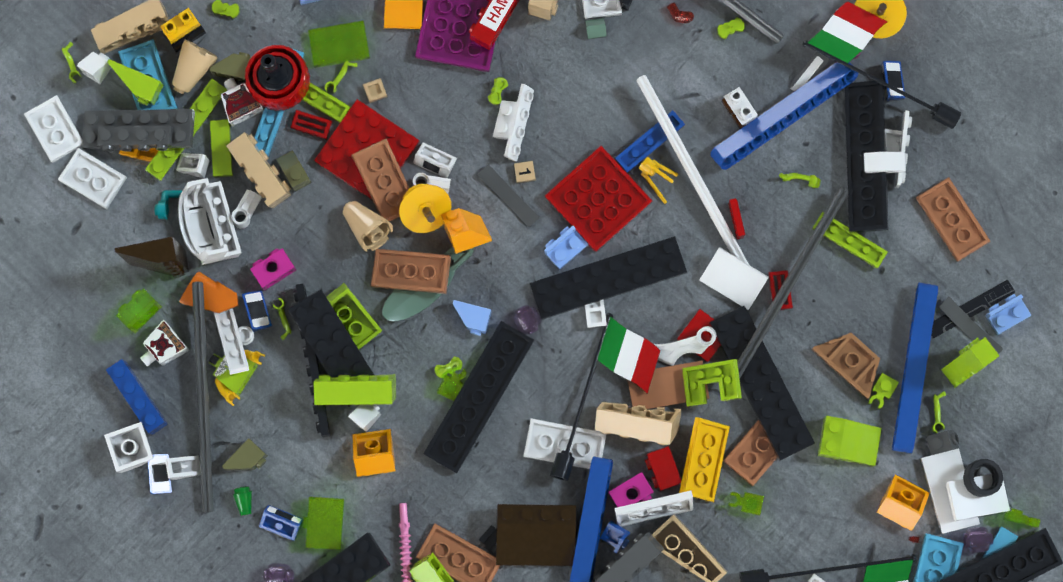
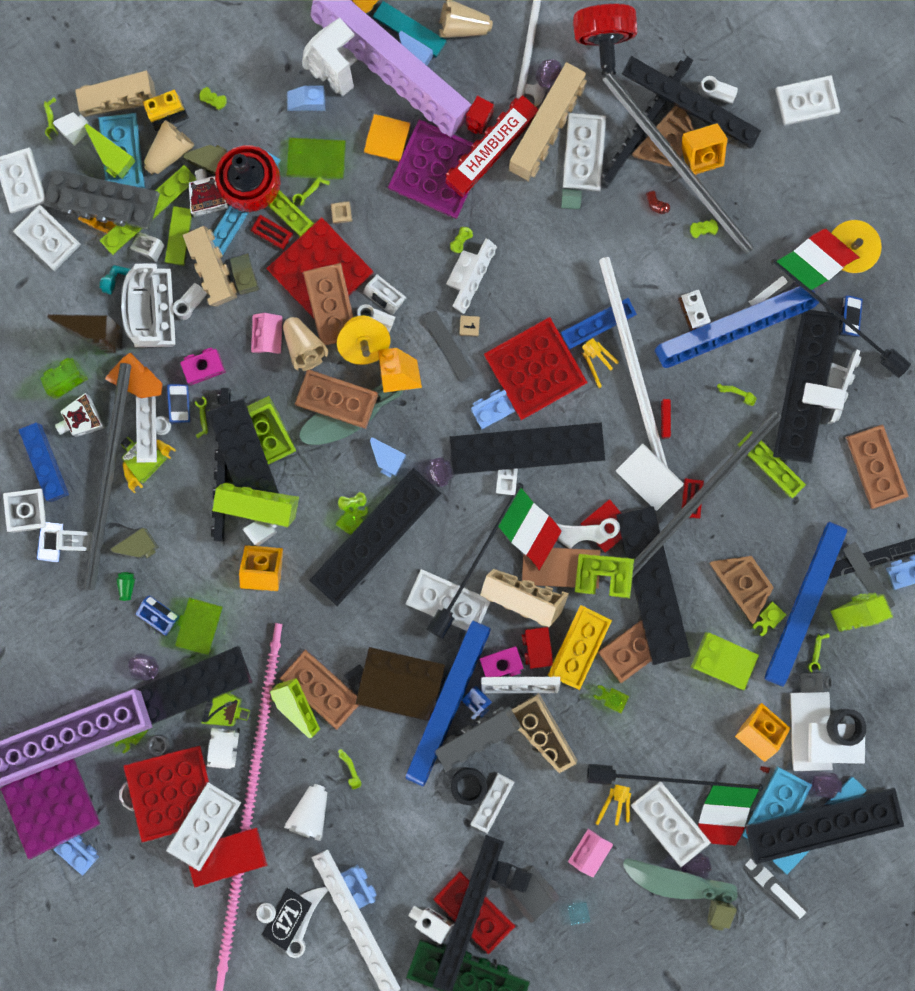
camera: 10 degrees right, 5 degrees up
(328, 223) = (266, 333): none -> bright pink panel
(1017, 517) = (870, 770): clear neon green plate -> none

